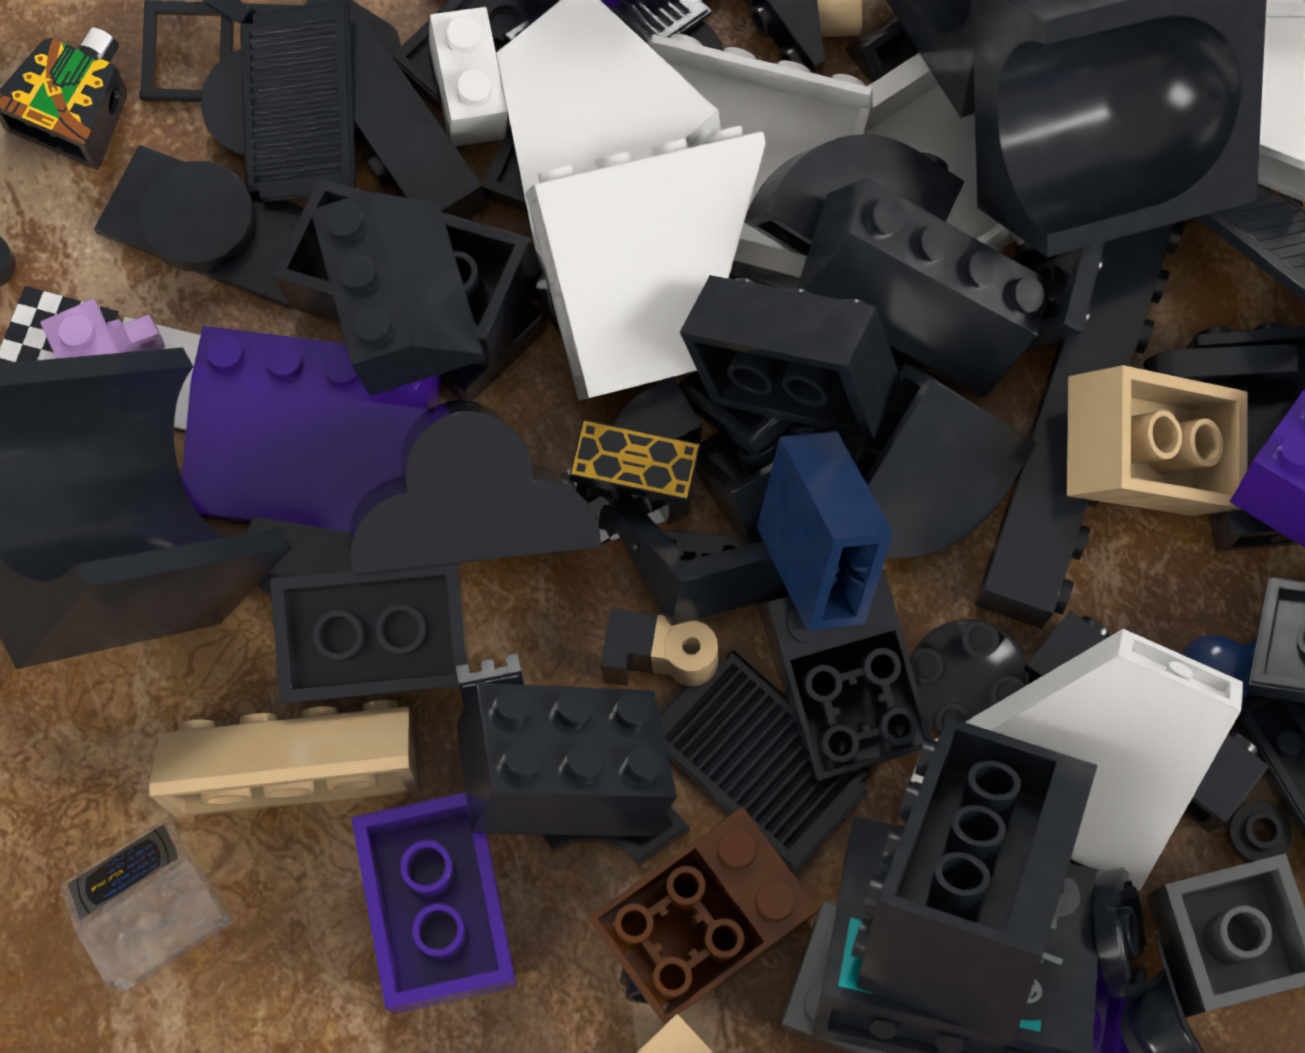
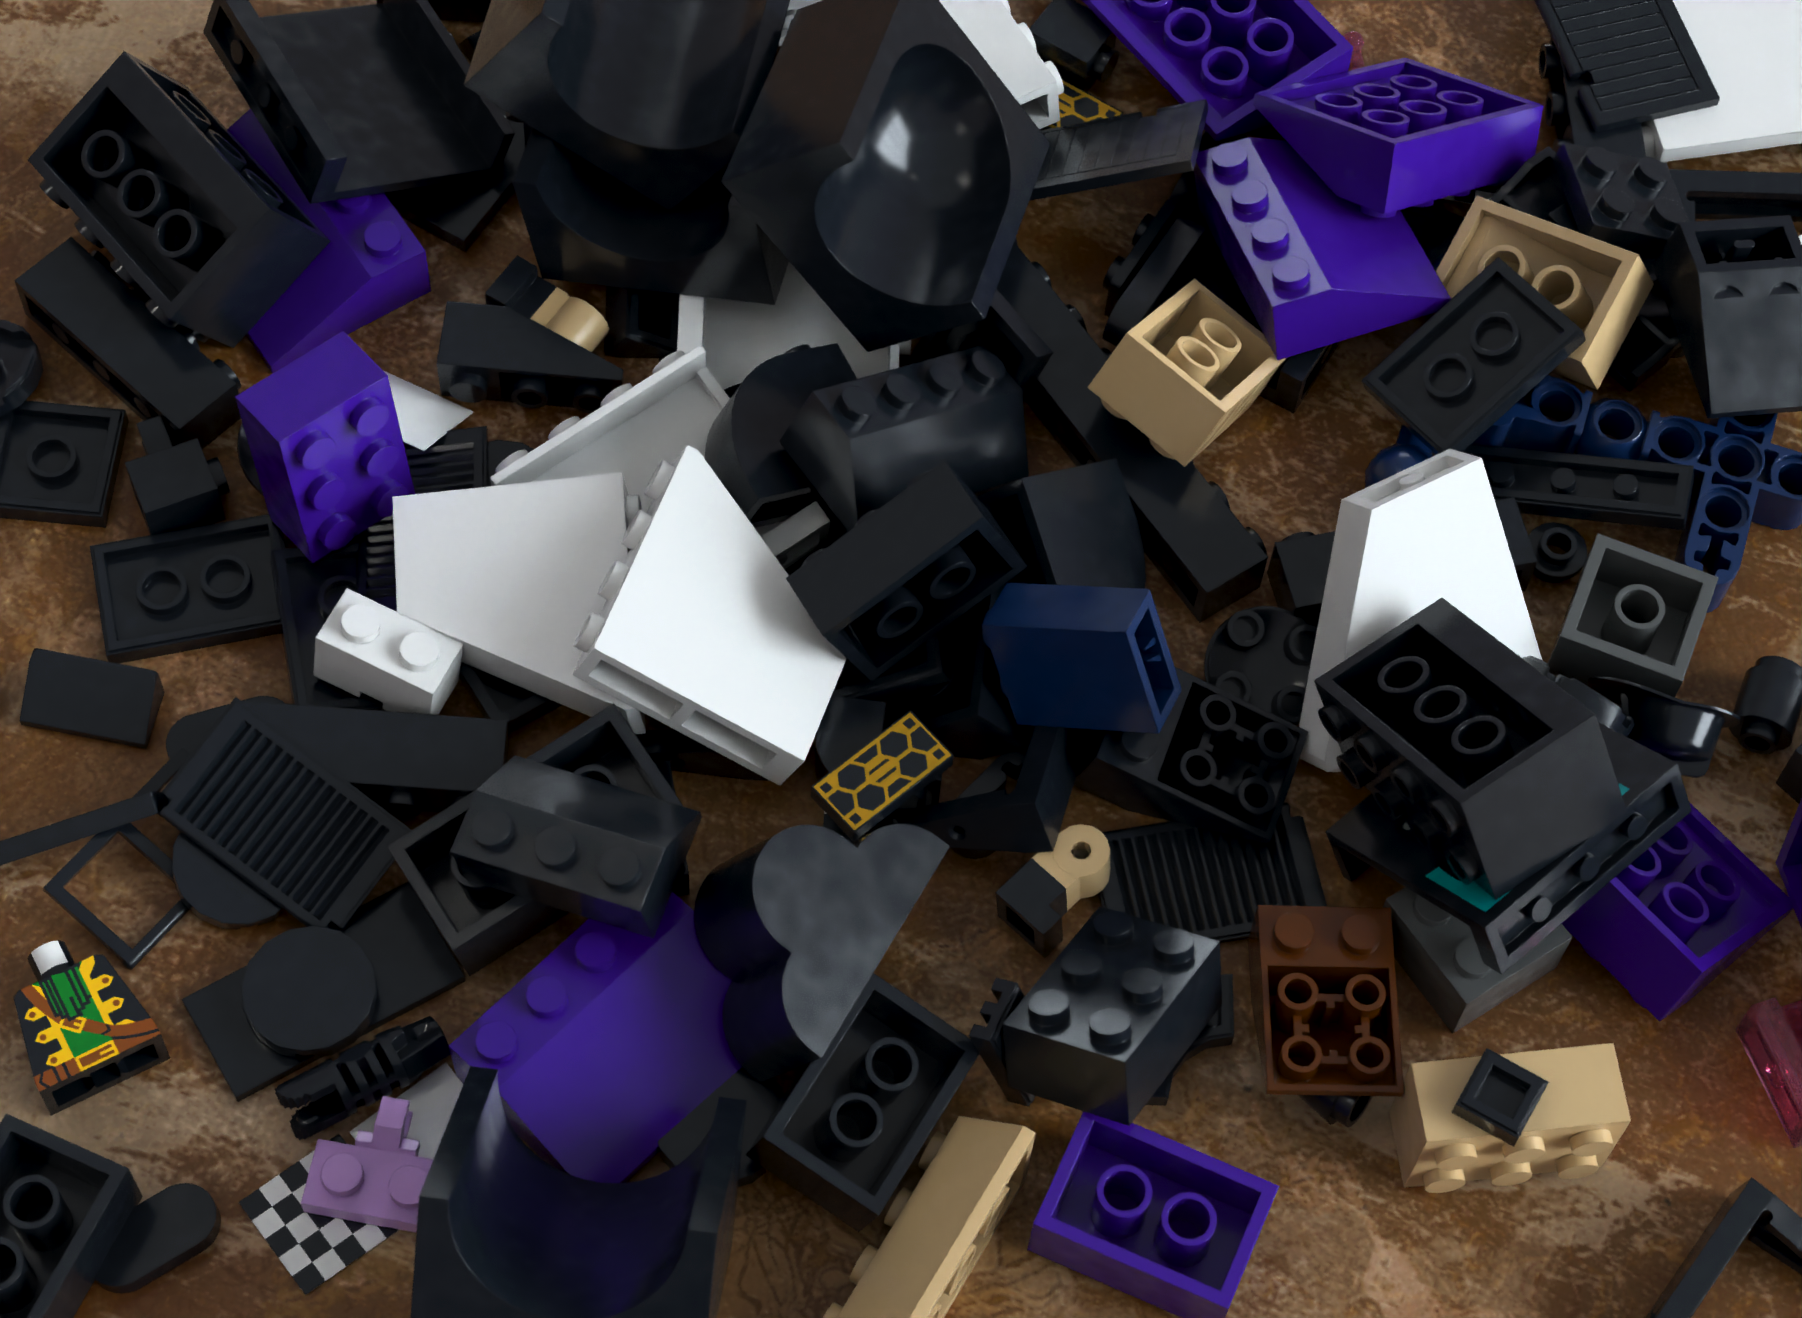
camera: 55 degrees left, 10 degrees down
(160, 291) = (362, 1075): none -> black hinge

